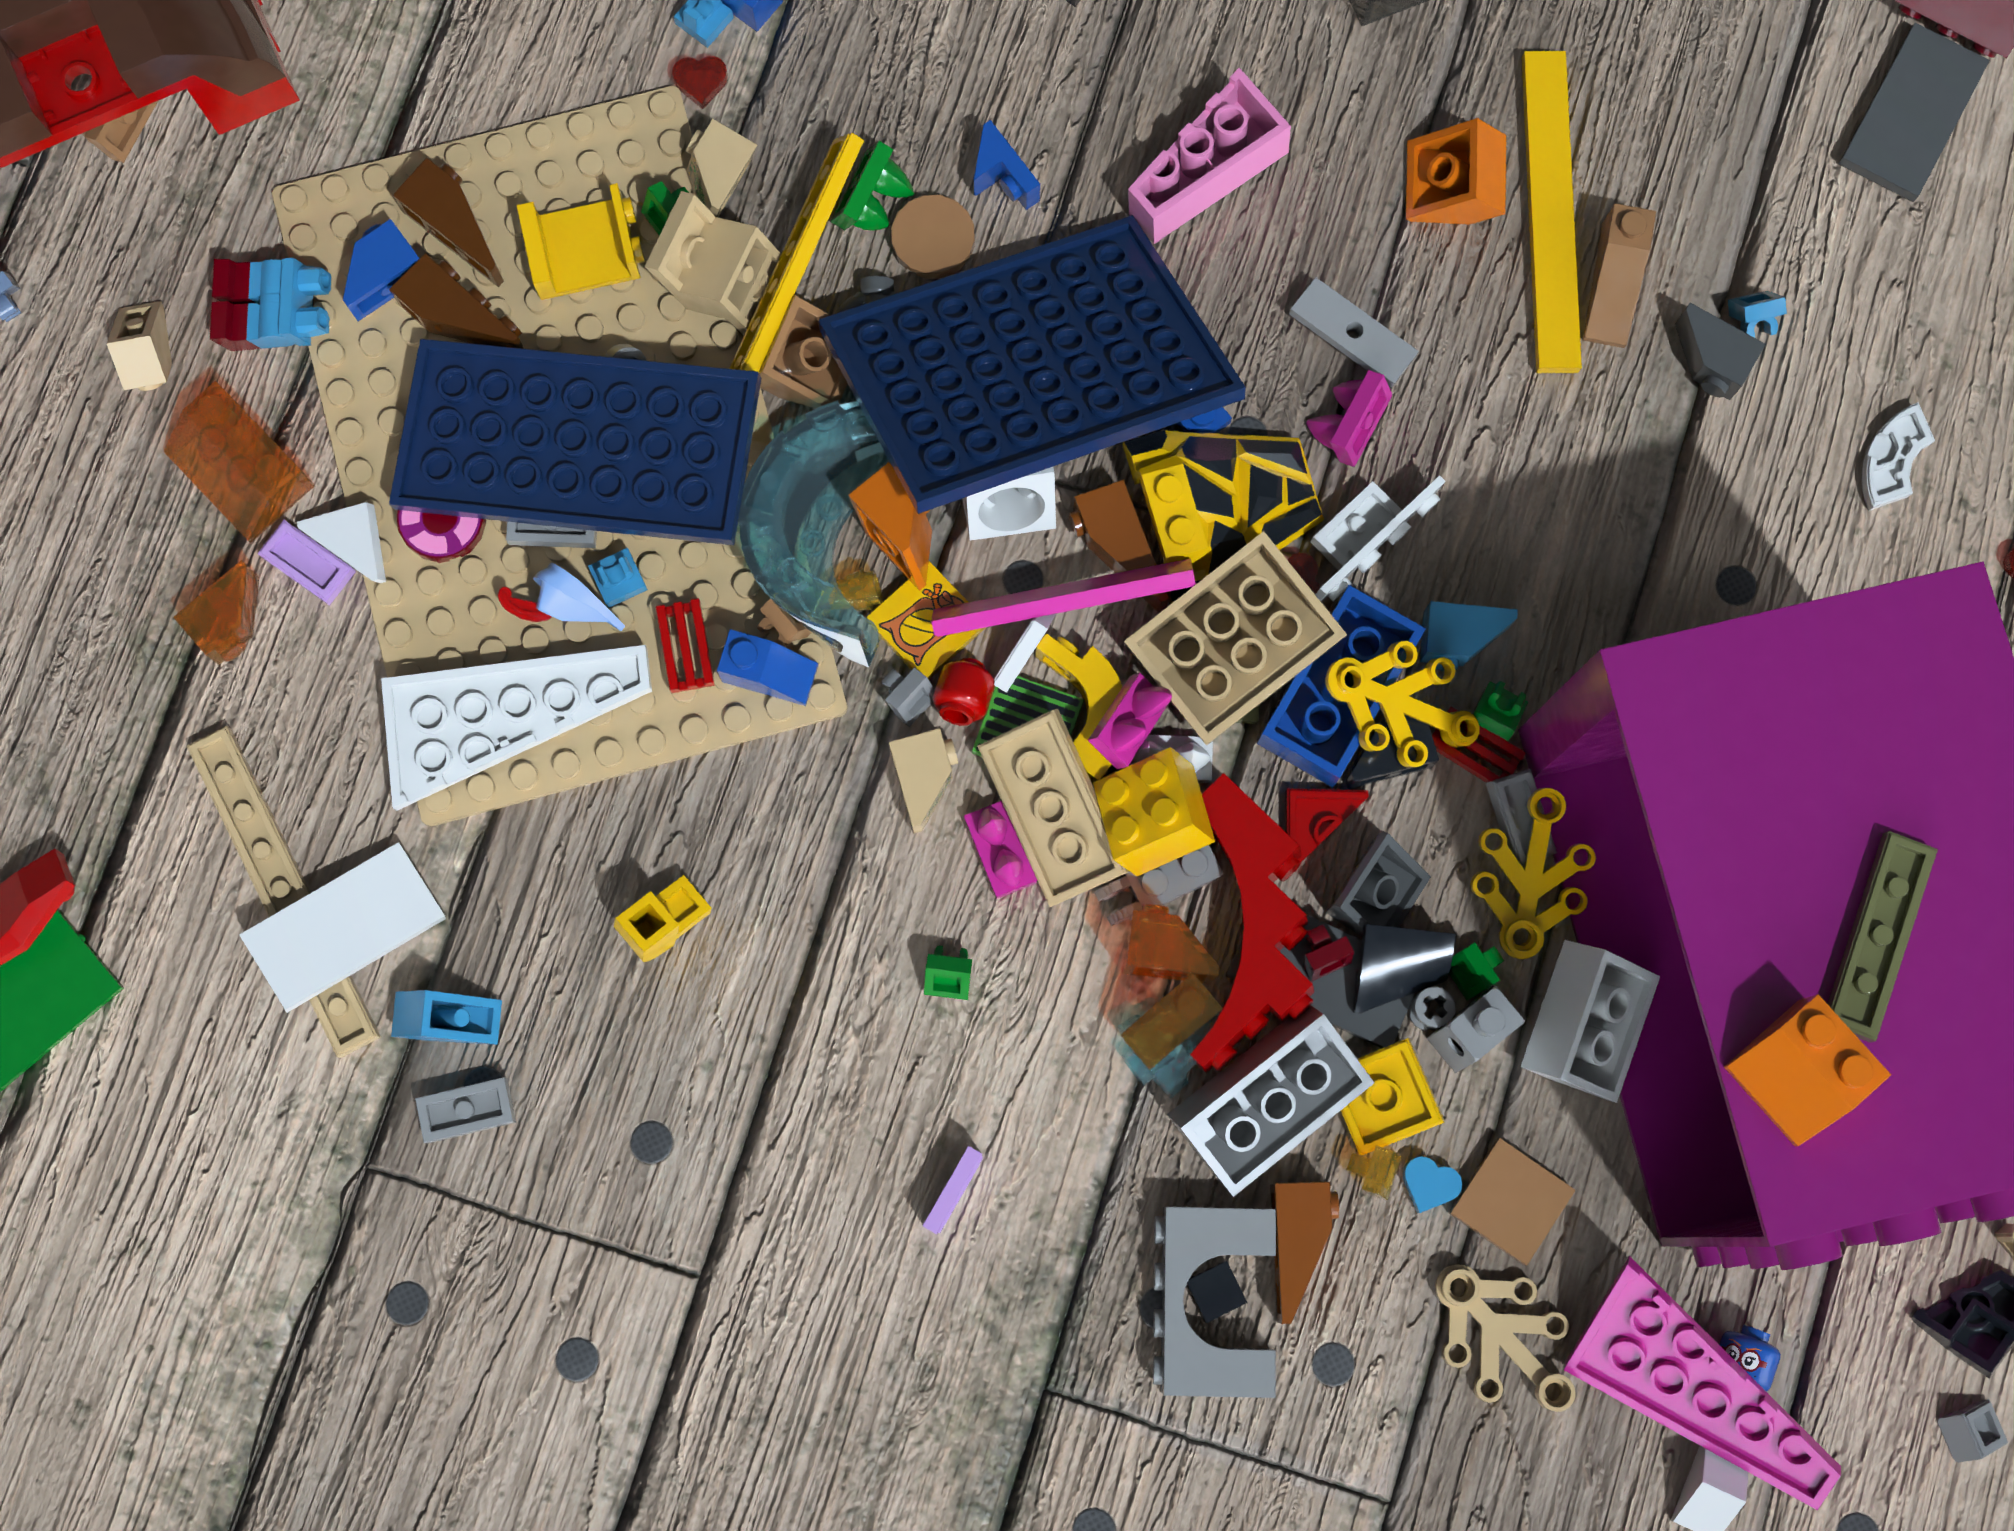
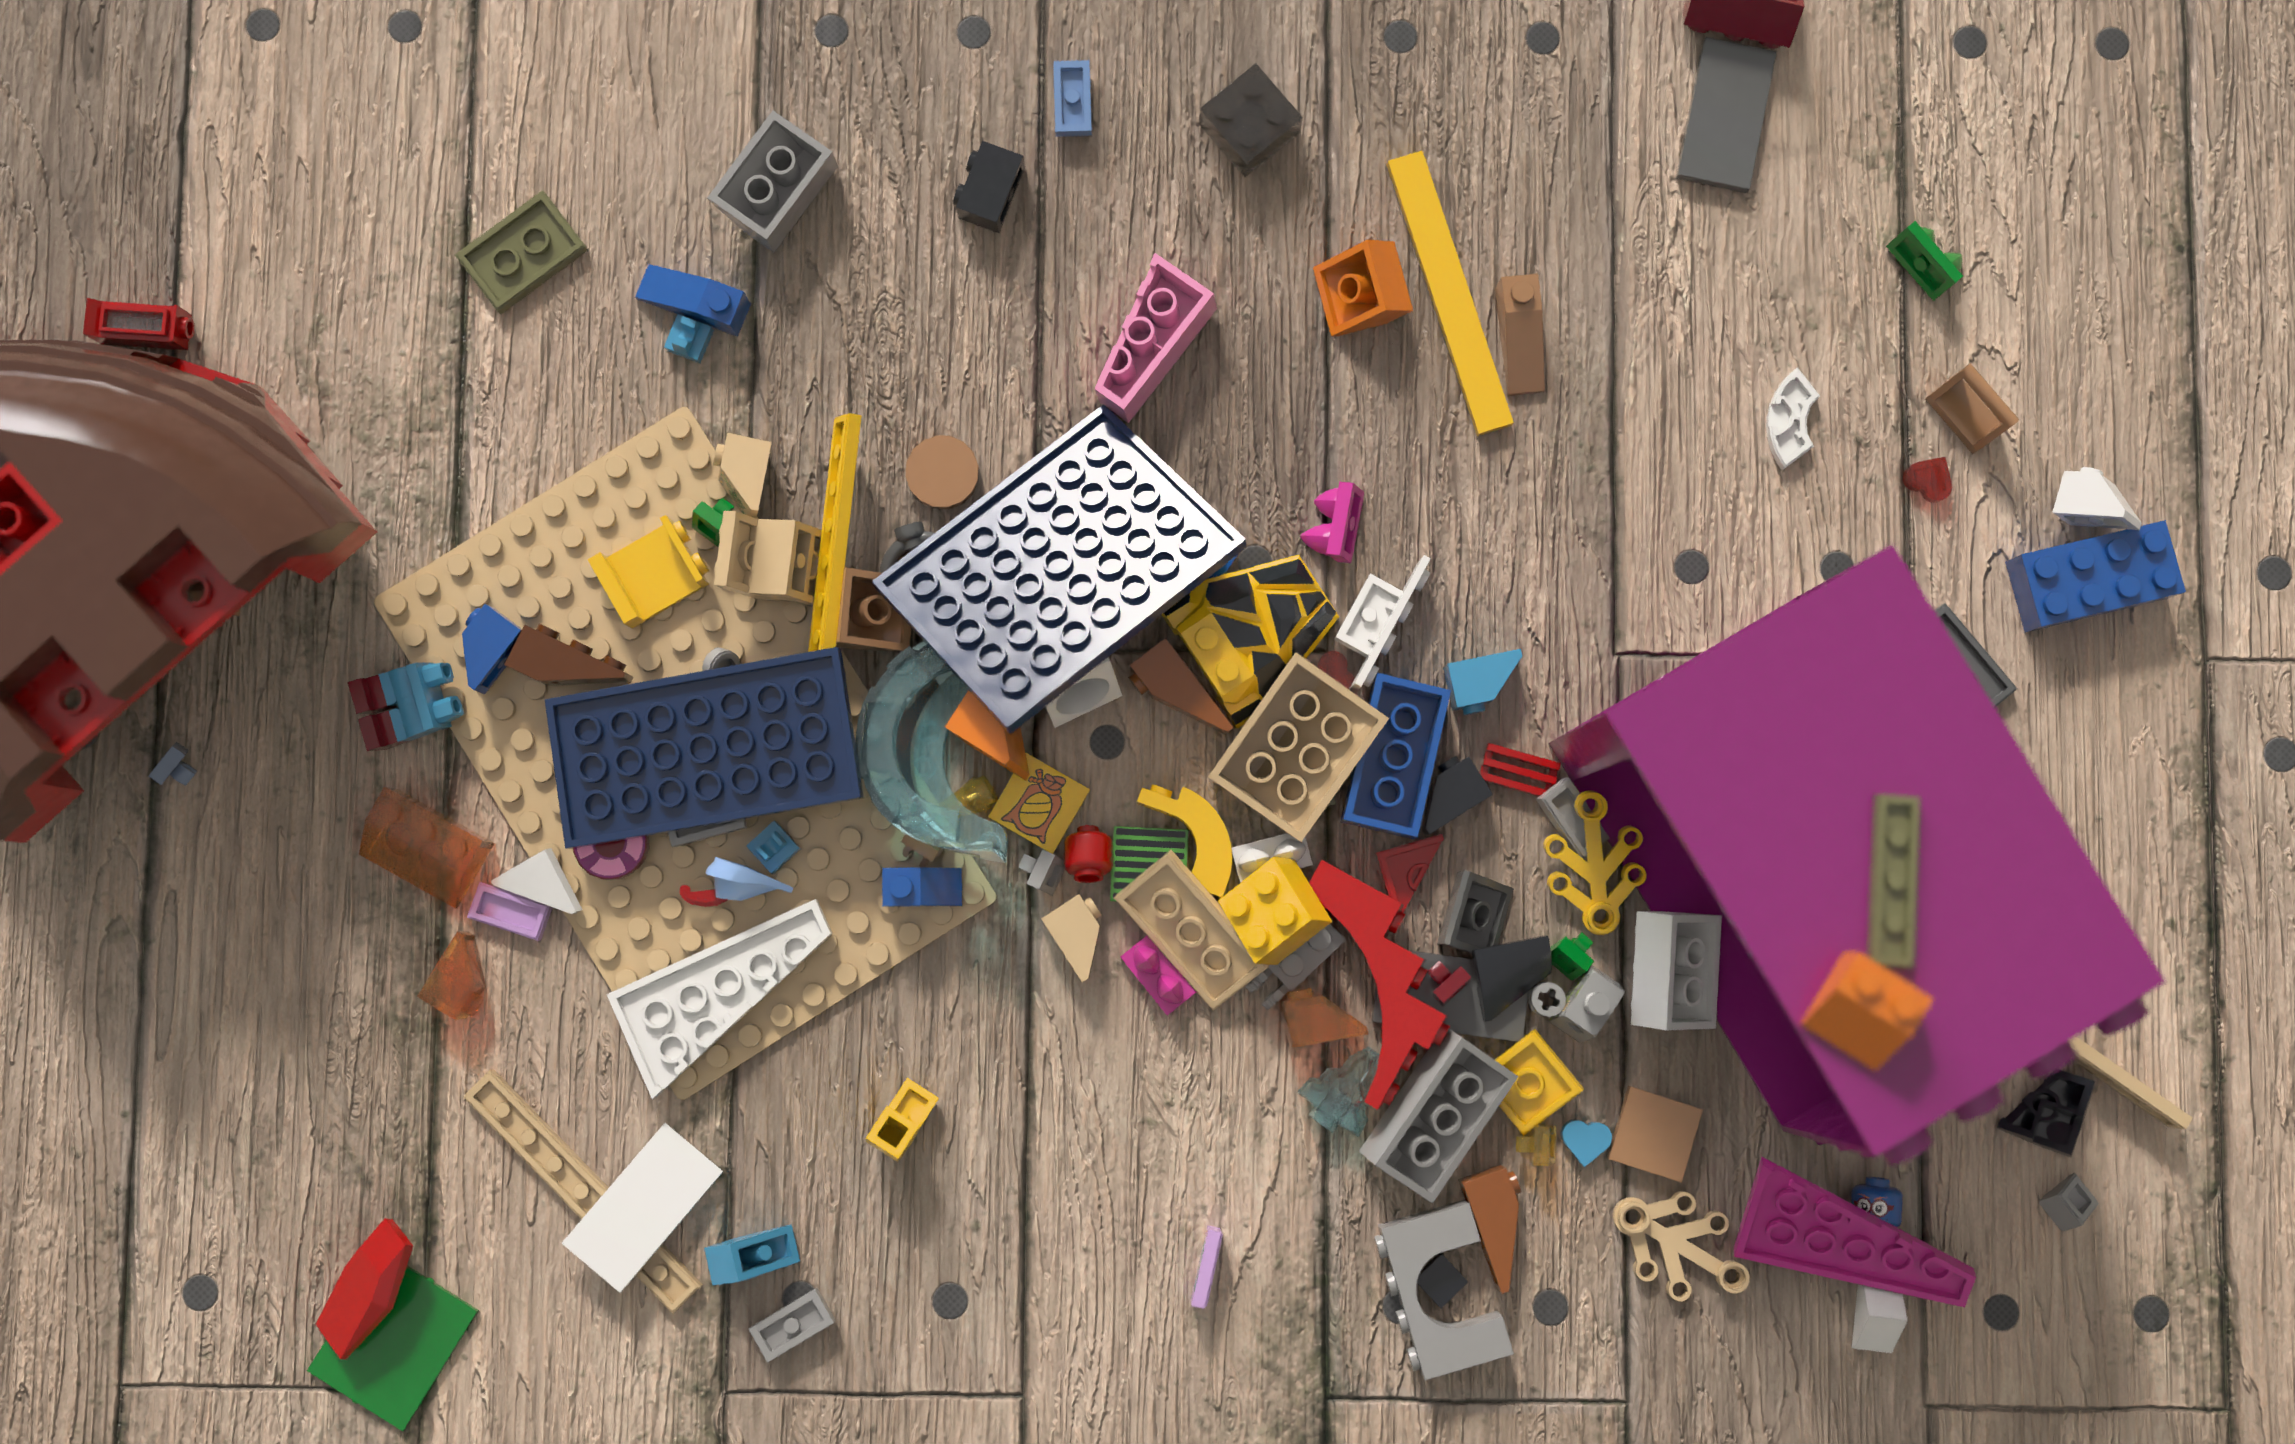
camera: 15 degrees left, 5 degrees up
(141, 346) = (309, 771): tan slope -> none
(440, 207) = (527, 578): reddish brown slope -> none
(679, 610) = (832, 859): red tile -> none
(700, 79) = (703, 394): clear red tile -> none
(875, 174) = (879, 433): green tile -> none
(948, 975) = (1148, 1093): green tile -> none
(1000, 161) = (976, 390): blue slope -> none
(1022, 651) = (1129, 797): white tile -> none
(1063, 597) = (1147, 755): dark pink tile -> none
(1129, 720) = (1232, 841): dark pink tile -> none
(1171, 1021) = (1341, 1079): clear orange slope -> none
(1333, 316) = (1339, 457): light grey tile -> none
(1396, 702) = (1444, 758): yellow plant -> none
(1500, 709) = (1529, 734): green tile -> none
(1716, 351) = (1621, 376): dark grey slope -> none
(1756, 308) = (1643, 327): dark azure tile -> none

